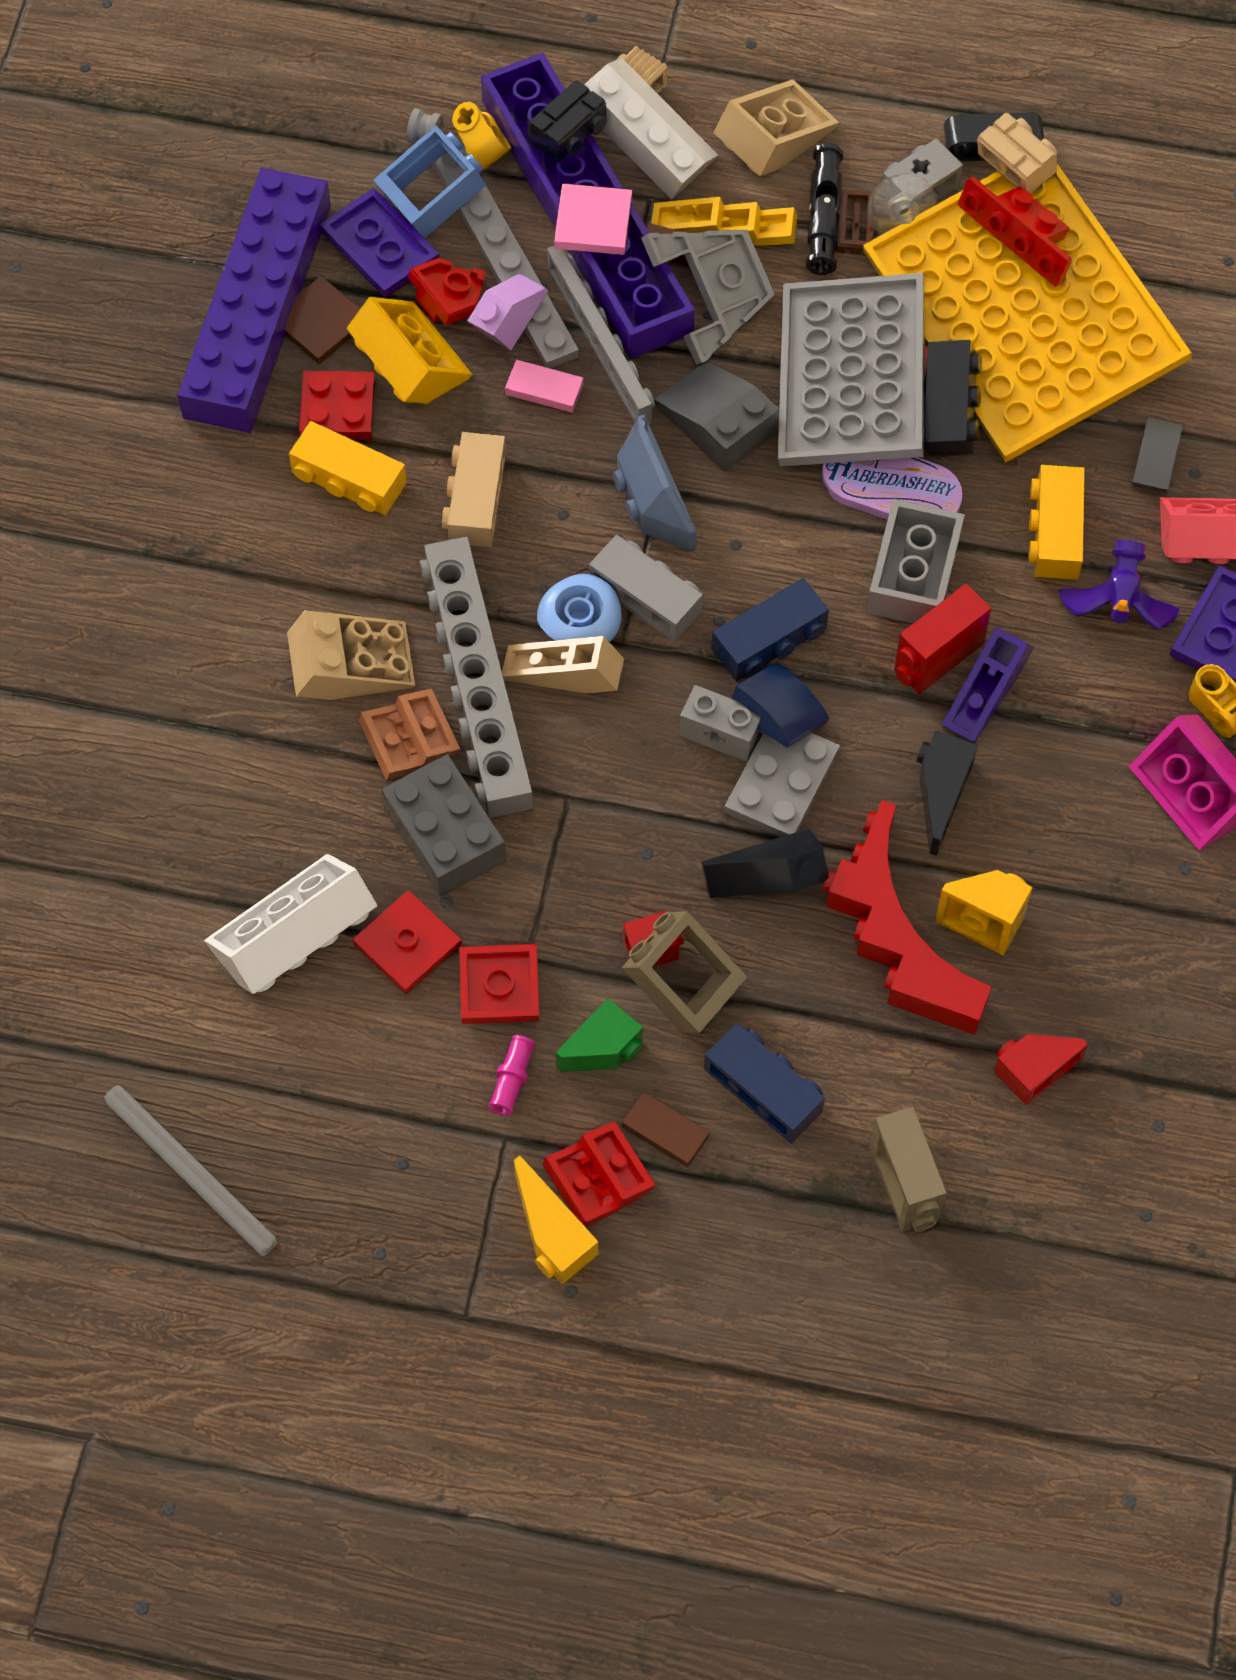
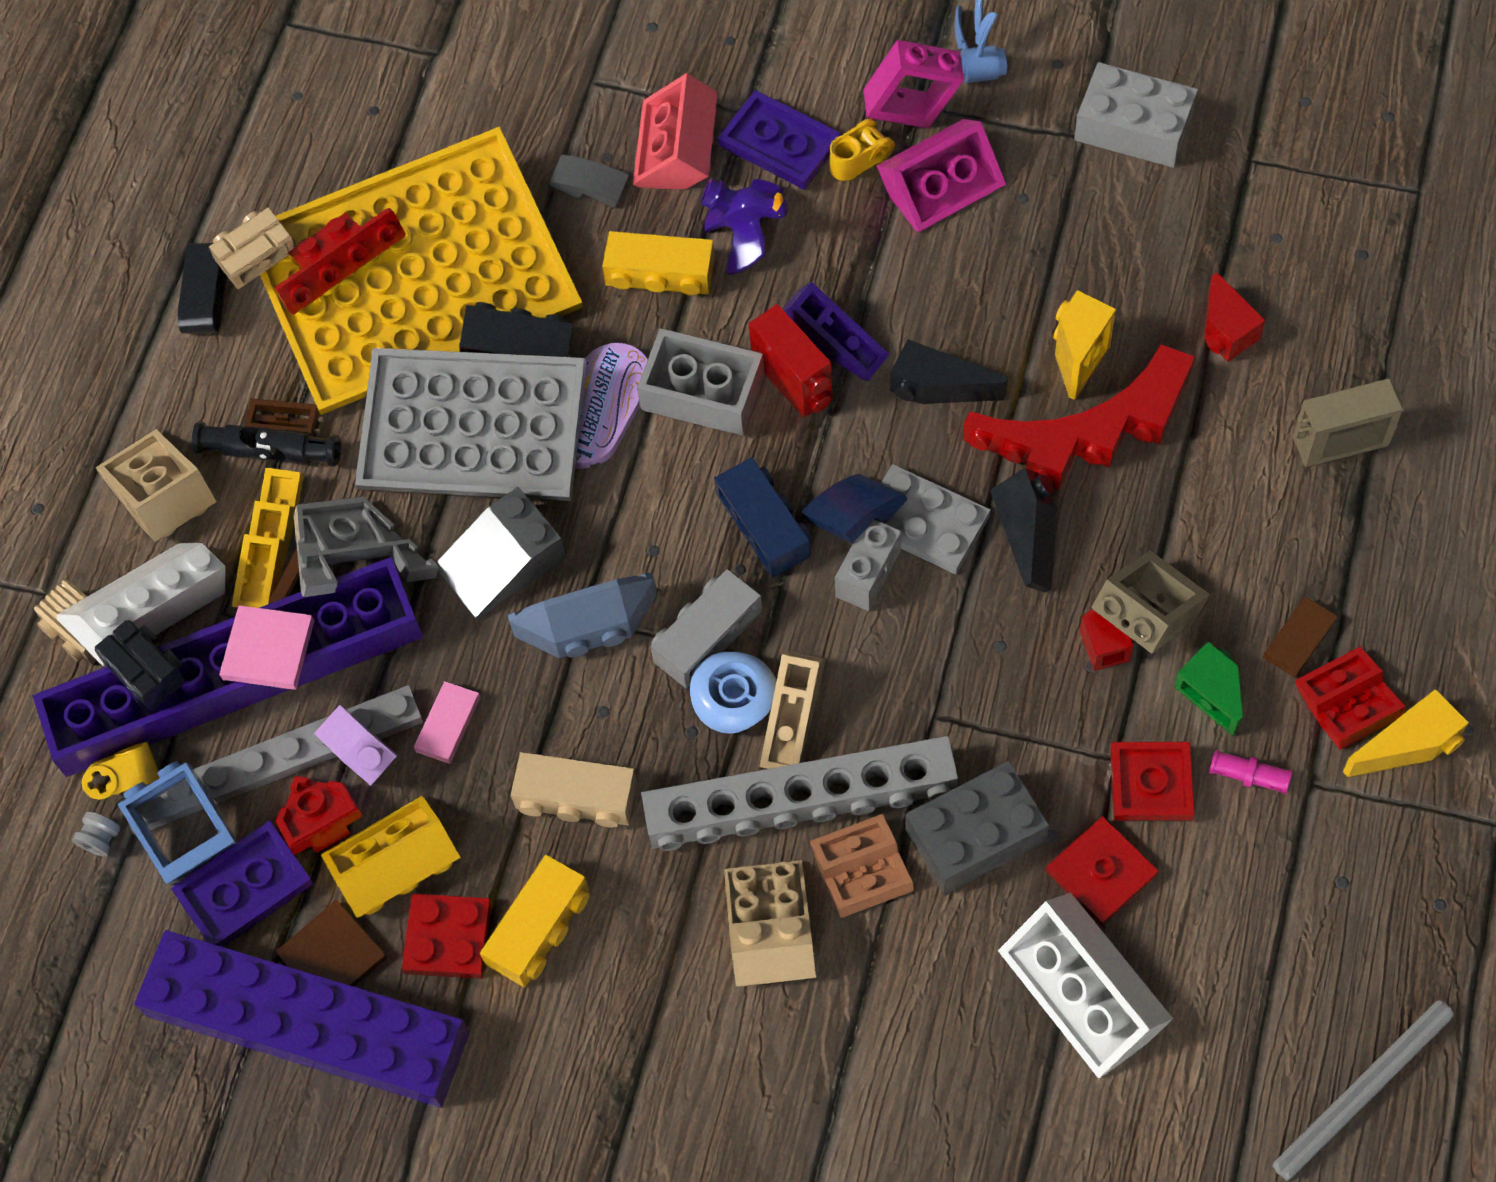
camera: 80 degrees left, 0 degrees up
(595, 327) = (394, 663): light grey plate -> none
(764, 1082) = (1253, 544): dark blue brick -> none
(896, 194) = (281, 367): clear dish -> none
(933, 164) = (244, 354): light grey brick -> none

